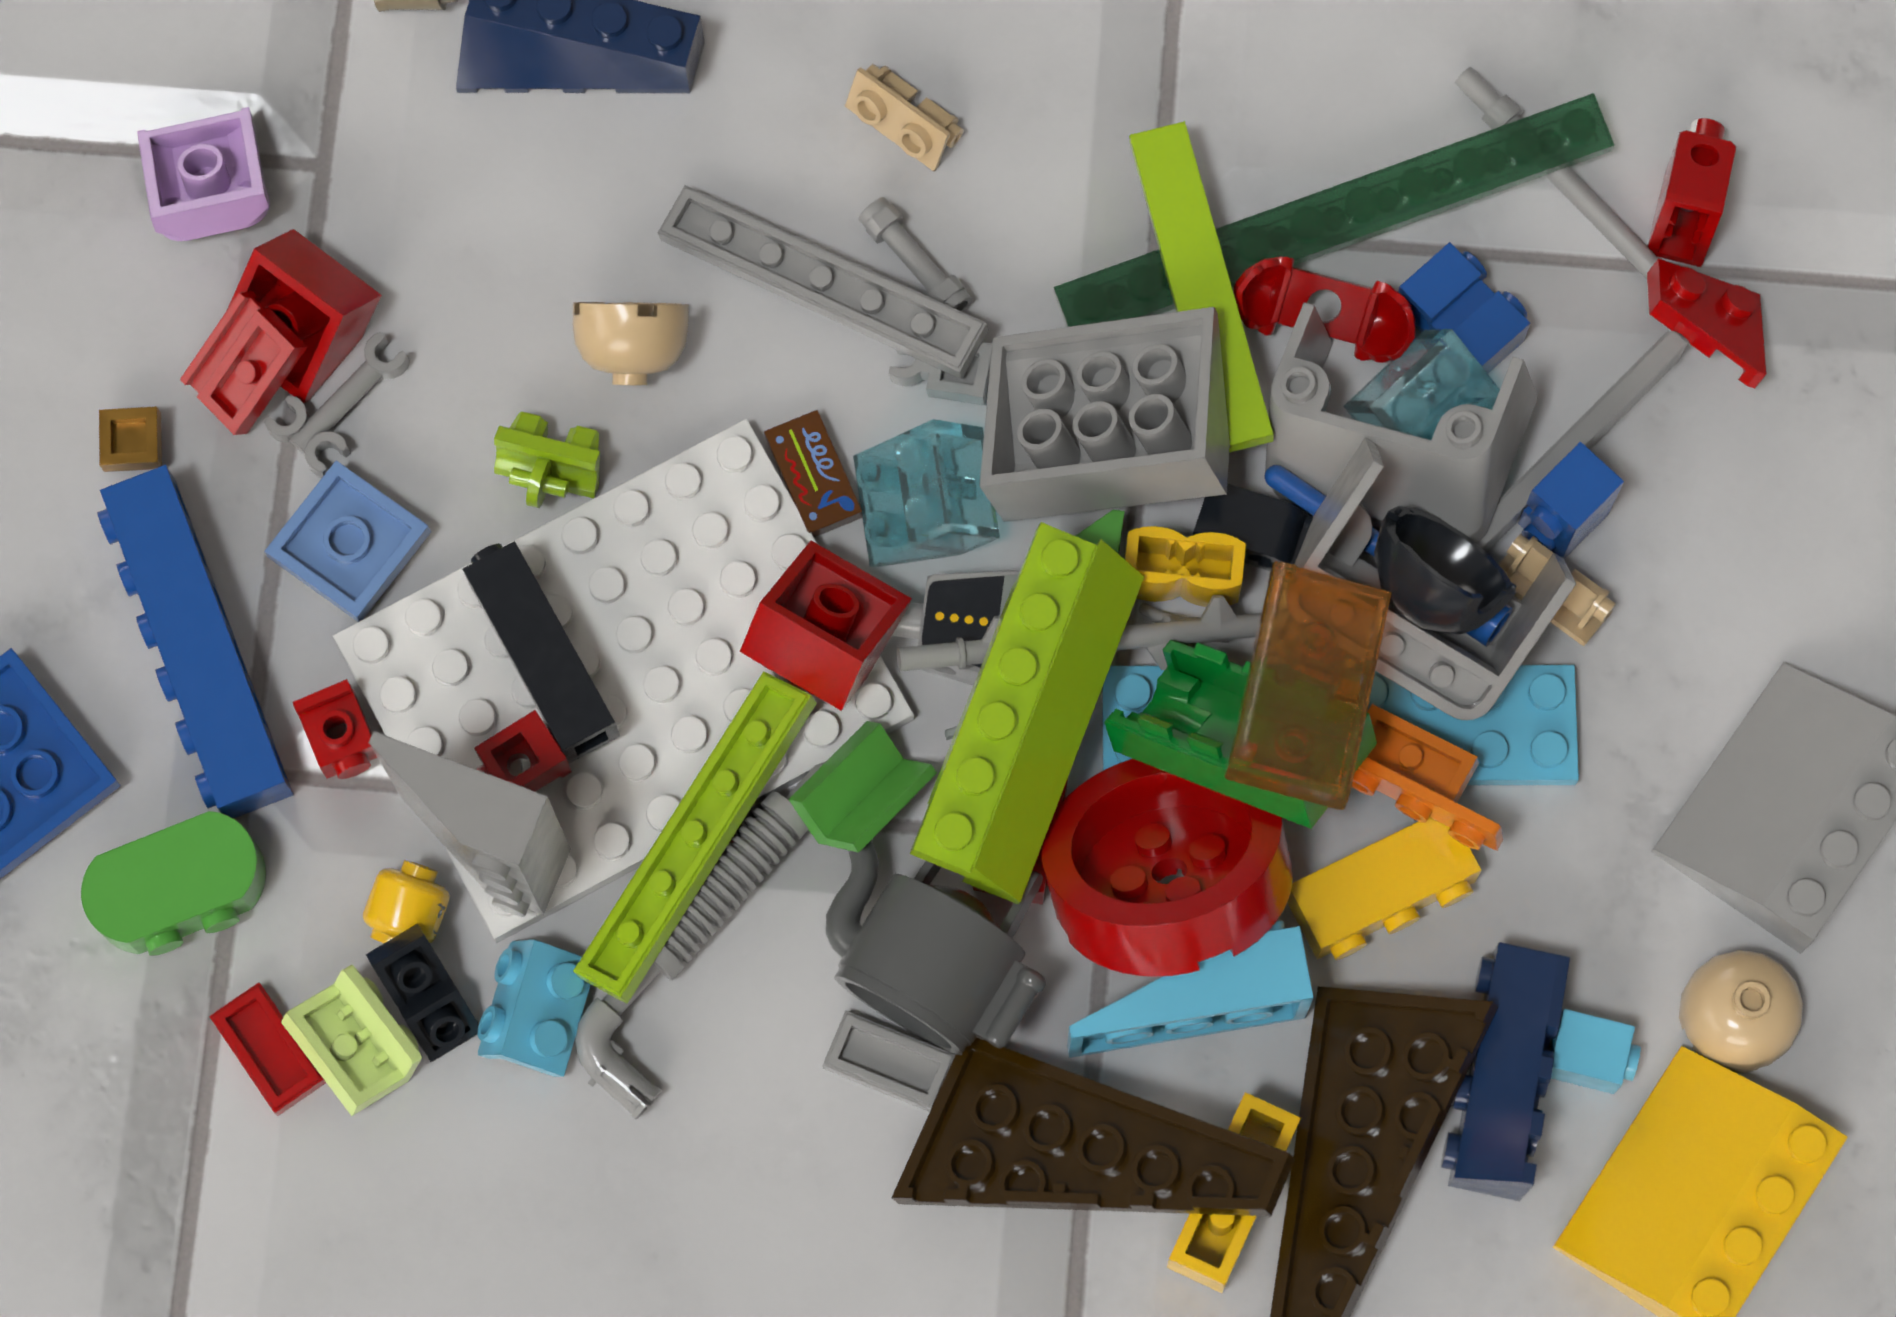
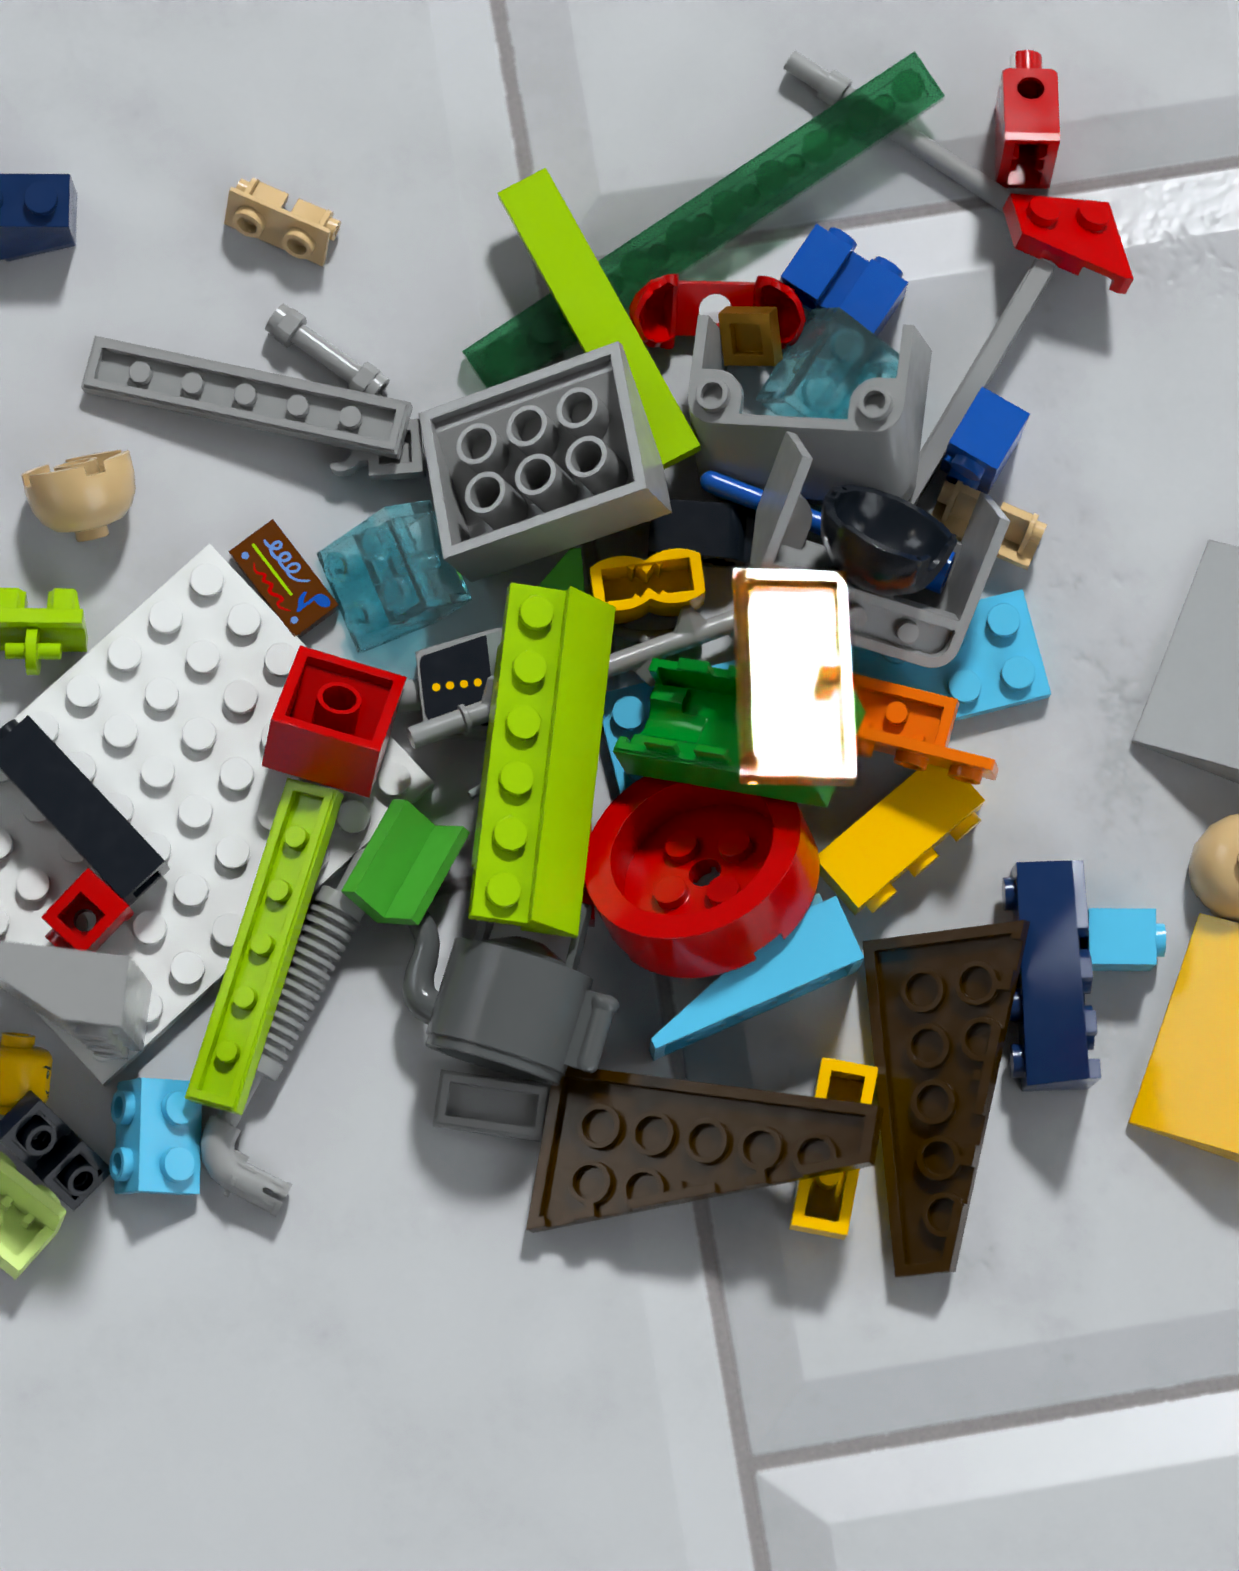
camera: 20 degrees left, 5 degrees up
(1353, 340) = (750, 336): none -> pearl gold plate

